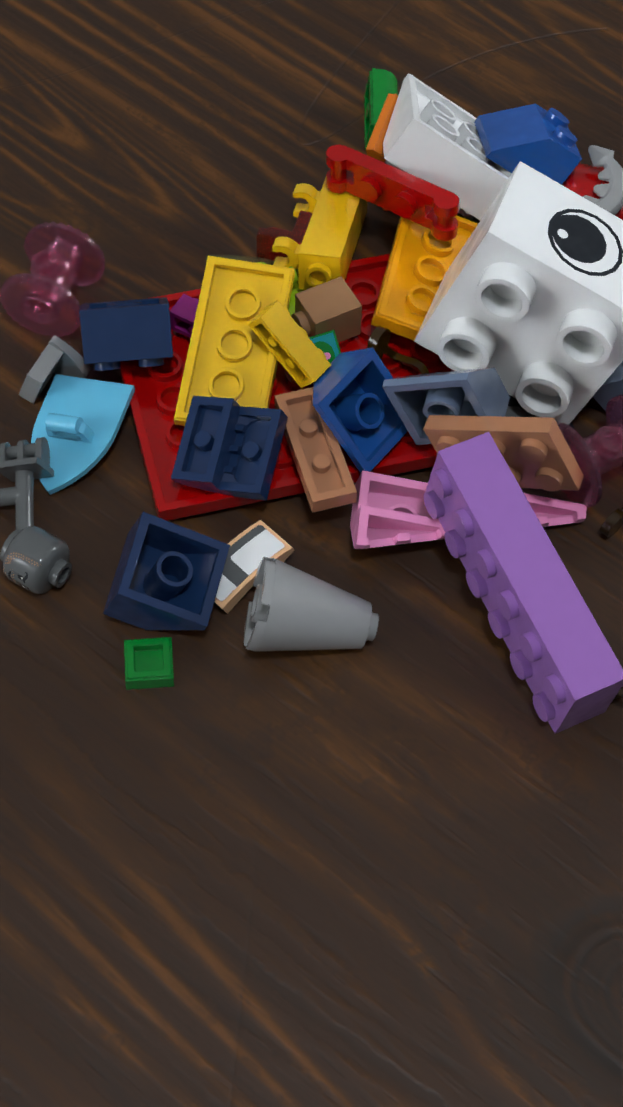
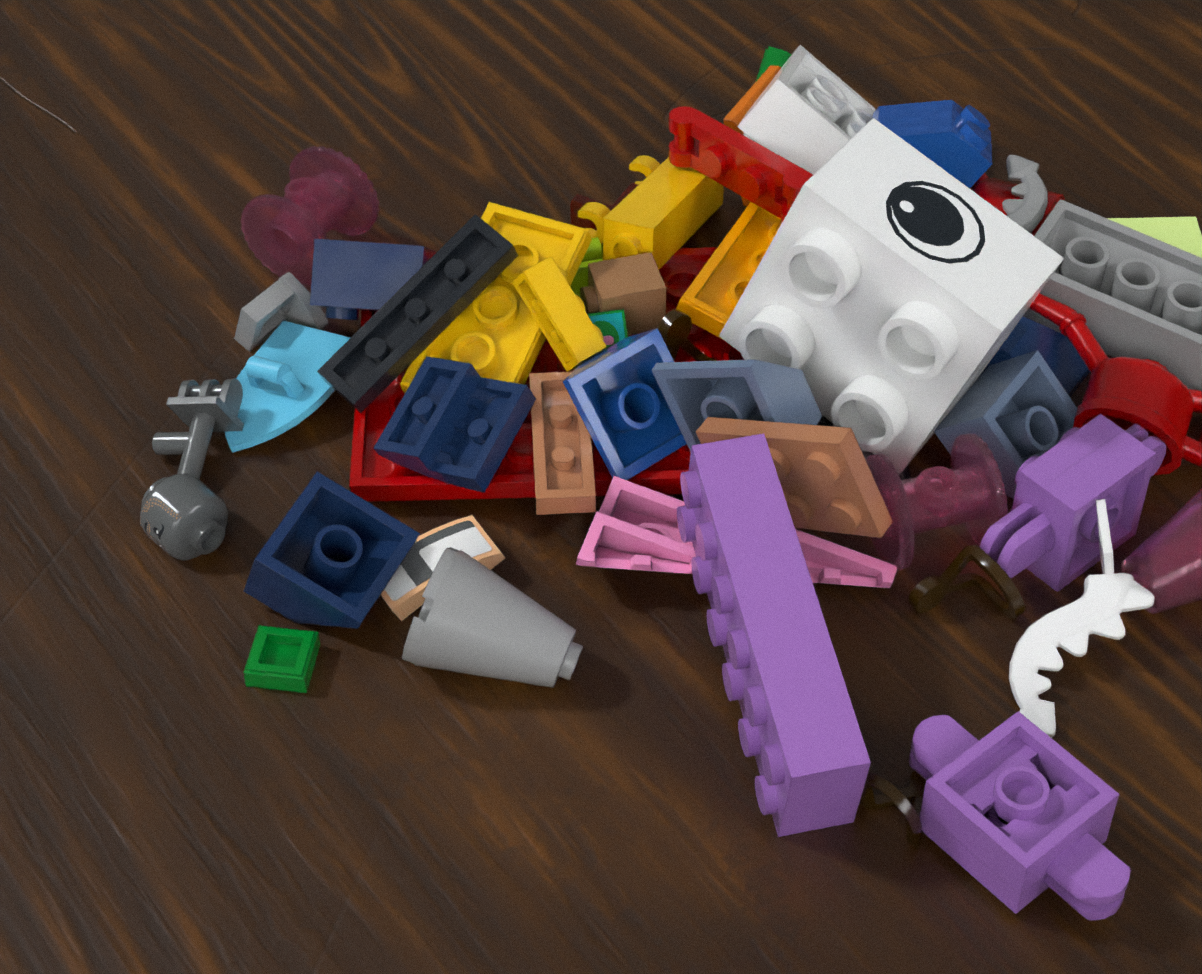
camera: 15 degrees right, 10 degrees down
(177, 360) = (418, 313): none -> black plate

